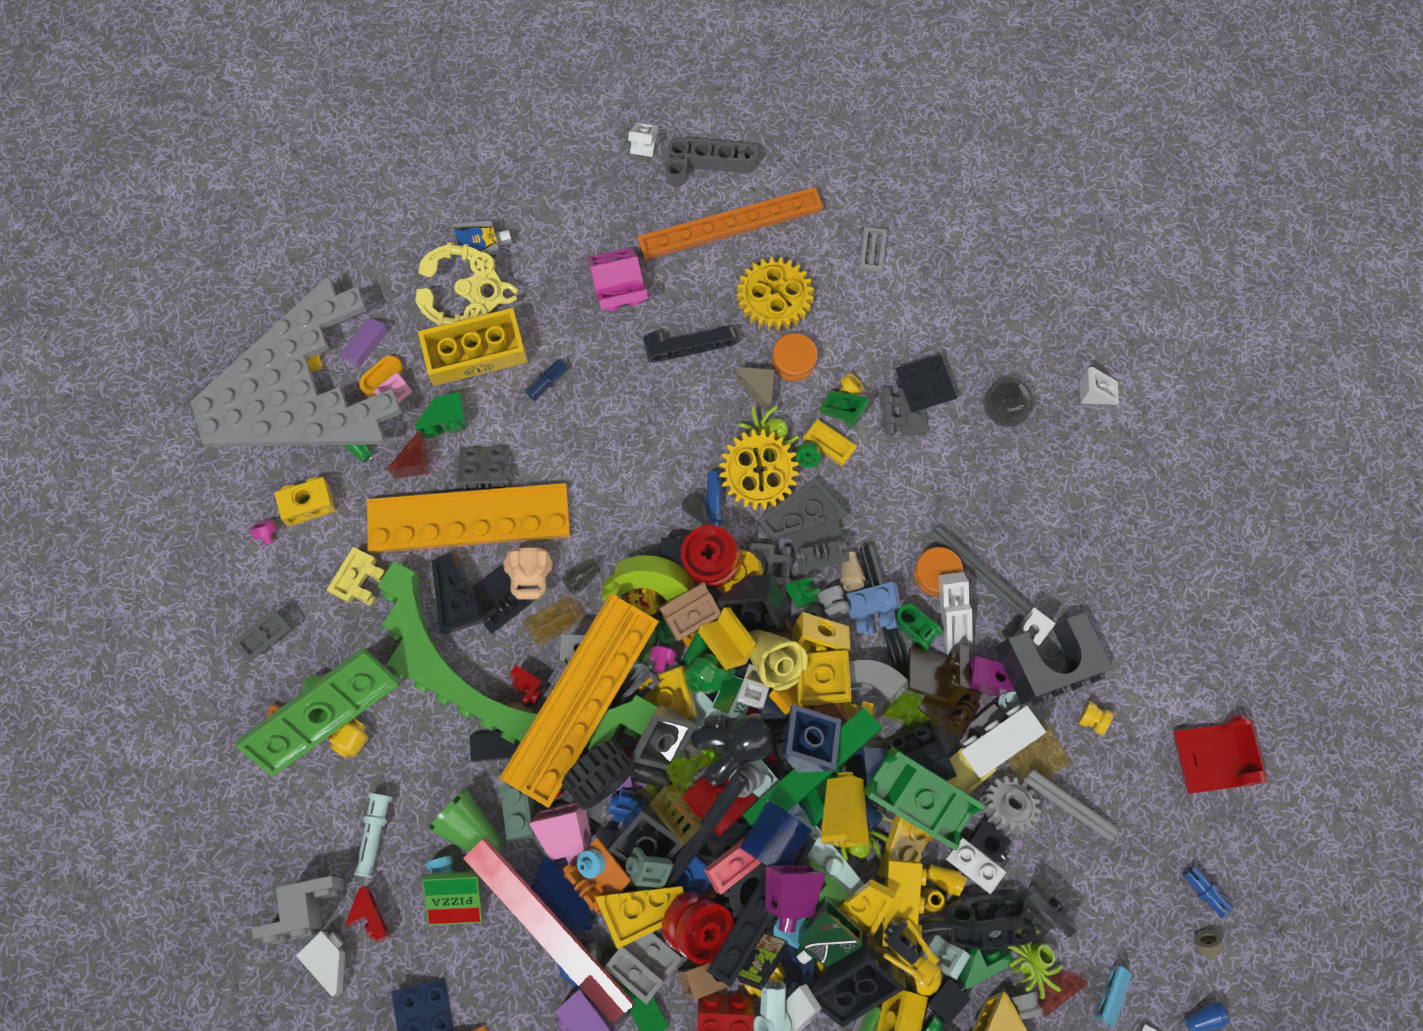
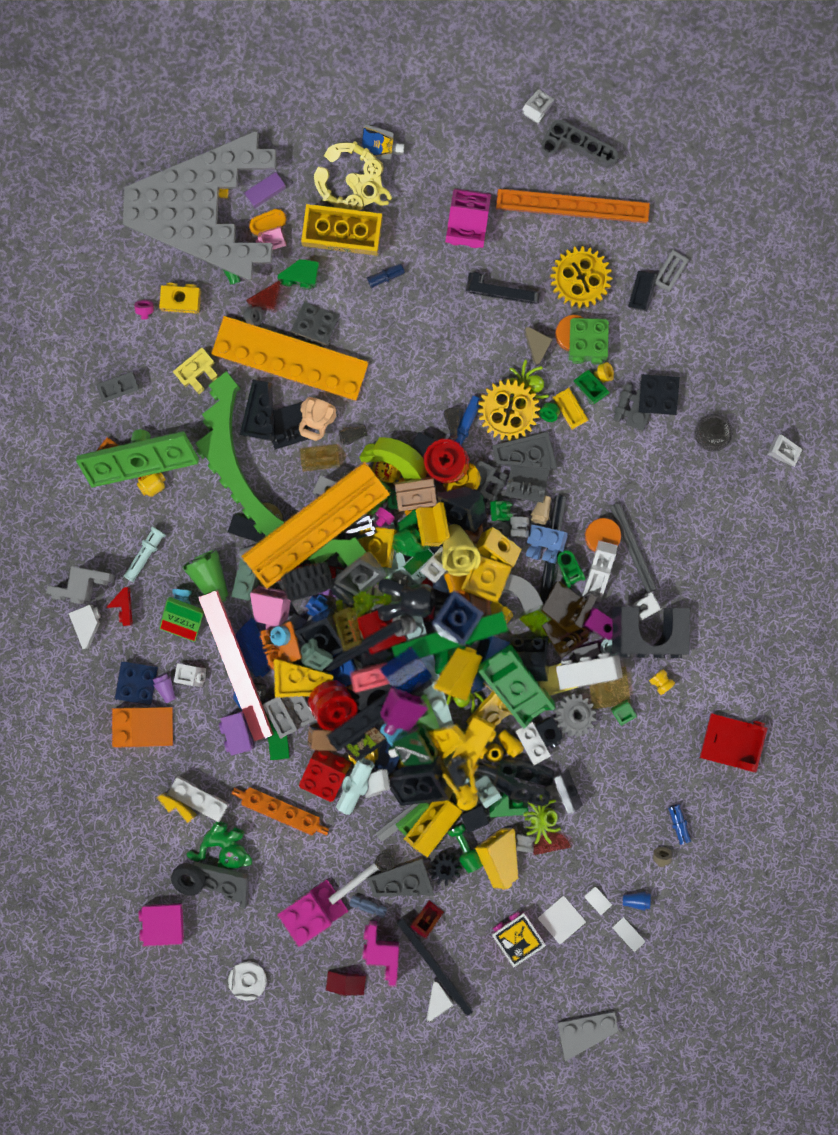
camera: 25 degrees right, 15 degrees up
(403, 485) = (253, 315): none -> dark grey tile
(464, 1002) = (164, 686): none -> medium lavender cone
(492, 970) = (190, 675): none -> white bracket
(525, 681) = (284, 493): red bracket -> none
(817, 357) = (588, 341): none -> bright green bracket
(852, 282) = (642, 291): none -> black tile
(1068, 777) = (624, 712): none -> green tile
(1071, 805) = (616, 731): light grey axle -> none
(1113, 995) = (585, 861): medium azure slope -> none

